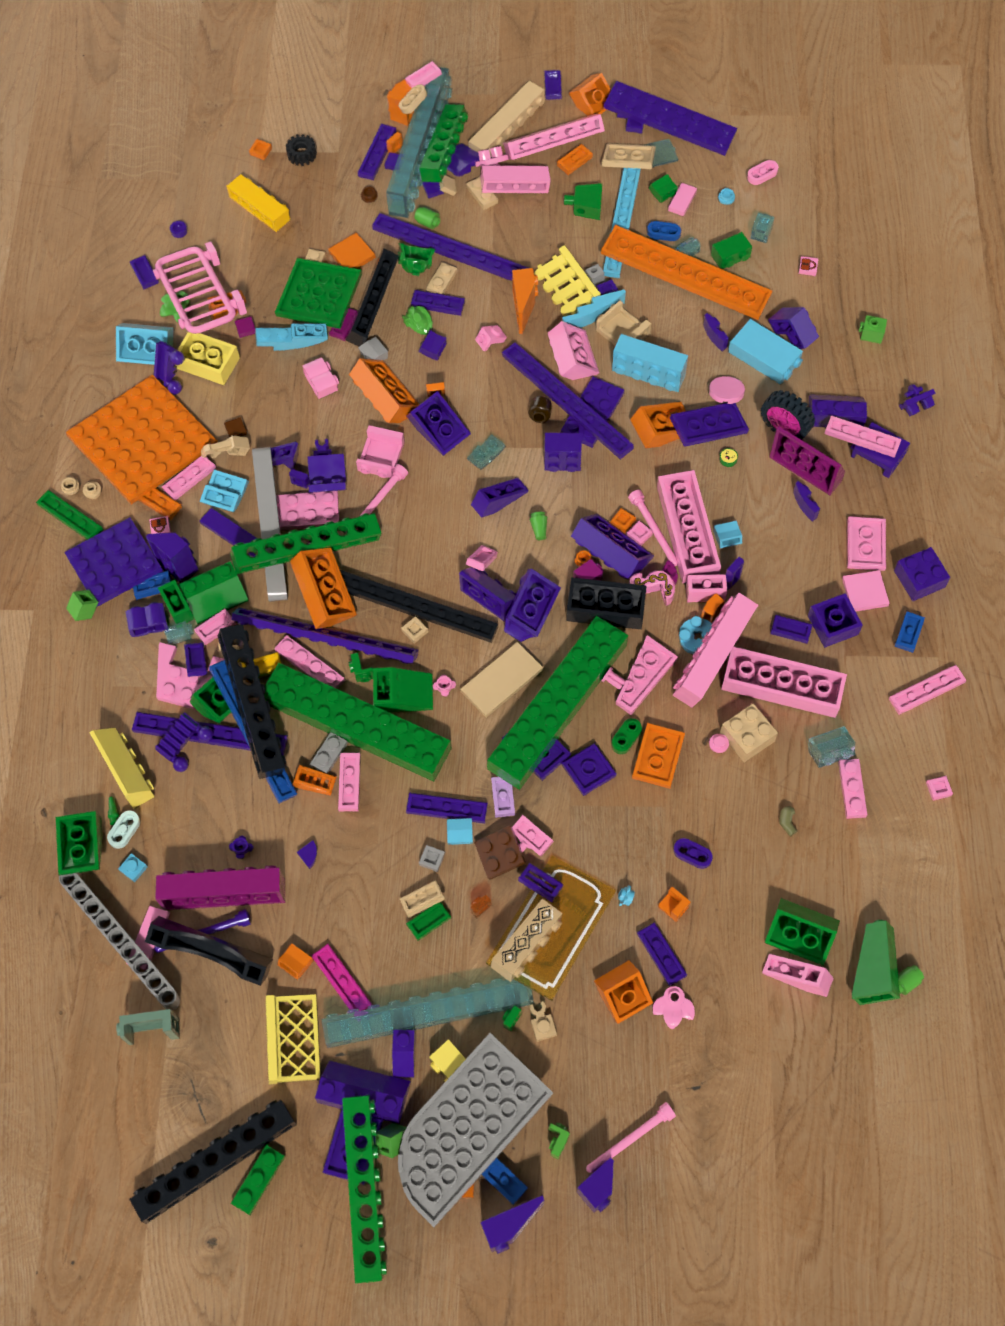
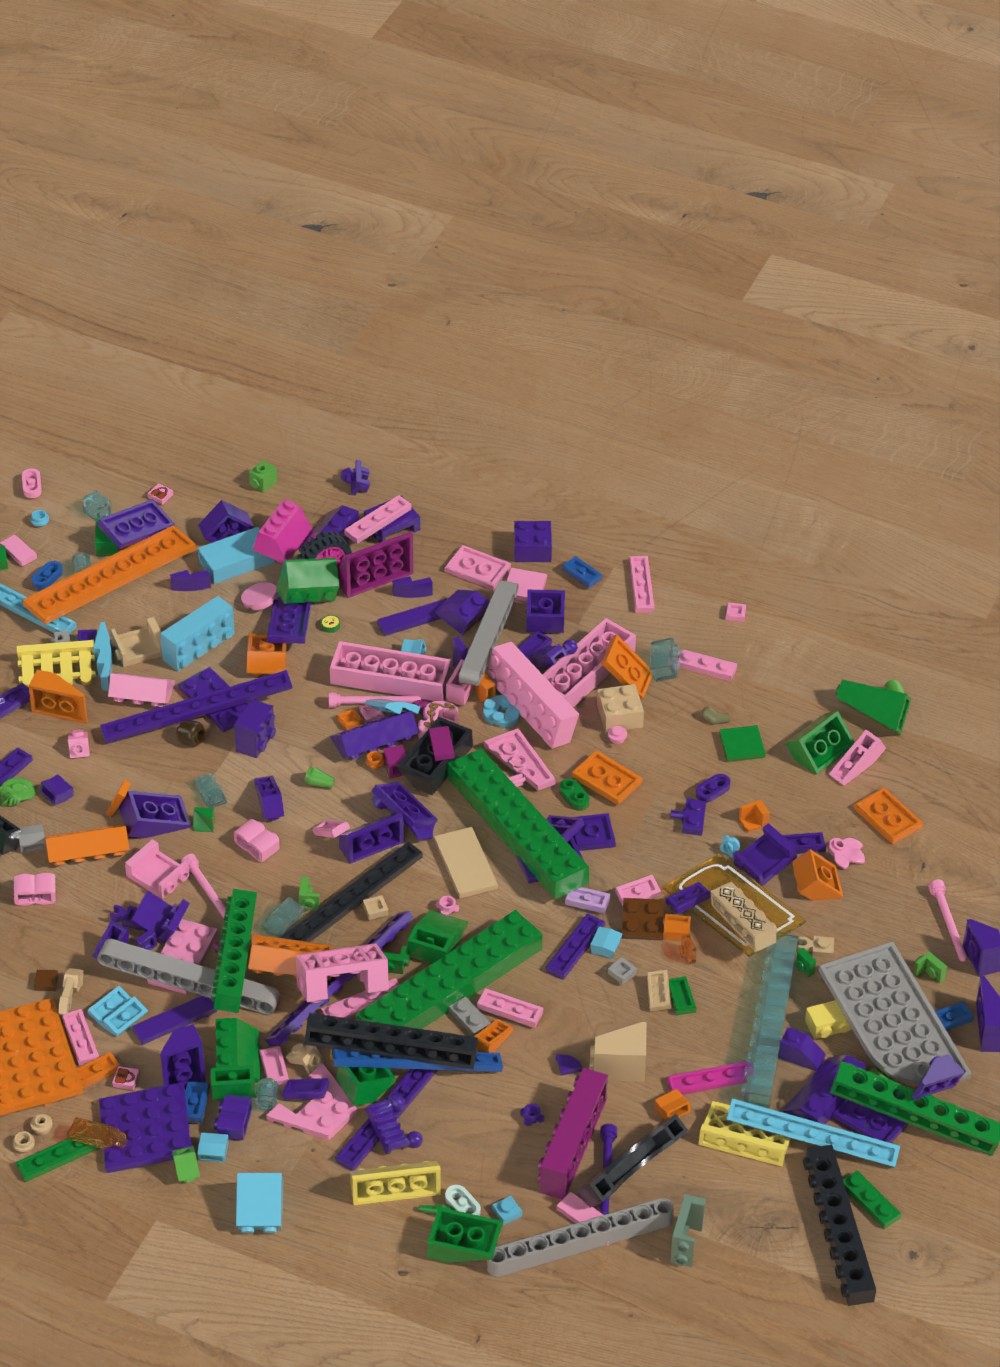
camera: 70 degrees left, 20 degrees down
(66, 674) = (259, 1202): none -> medium azure slope
(88, 529) = (96, 1134): none -> clear orange hinge
(112, 618) = (213, 1147): none -> medium azure piece
(304, 1100) = (813, 1132): none -> medium azure plate
(325, 895) = (621, 1053): none -> tan slope
(327, 643) = (364, 960): none -> bright pink plate
(372, 565) = (283, 917): none -> clear light blue slope
(399, 1194) = (940, 1076): none -> dark purple slope
(403, 569) = (307, 897): none -> bright green bracket
(445, 509) = (256, 840): none -> bright pink brick
(450, 461) = (204, 819): none -> green slope
(495, 878) = (675, 927): none -> orange piece
(571, 740) = (566, 826): none -> dark purple wing
(610, 600) = (441, 743): none -> magenta tile
(624, 932) = (766, 856): none -> dark purple panel
(641, 540) = (392, 706): none -> medium azure slope
(649, 848) = (692, 816): none -> dark purple plate
(742, 1031) = (888, 815): none -> orange tile
(751, 262) = (135, 523): none -> dark purple plate
(754, 416) = (308, 580): none -> green slope
(766, 858) = (742, 743): none -> green tile
(771, 583) = (488, 633): none -> light grey beam
(773, 641) = (547, 656): none -> dark purple gear
(774, 519) = (409, 618): none -> dark purple tile
(795, 717) = (626, 665): none -> orange plate
(798, 552) = (463, 609): none -> dark purple slope
(804, 372) = (283, 532): none -> dark pink slope

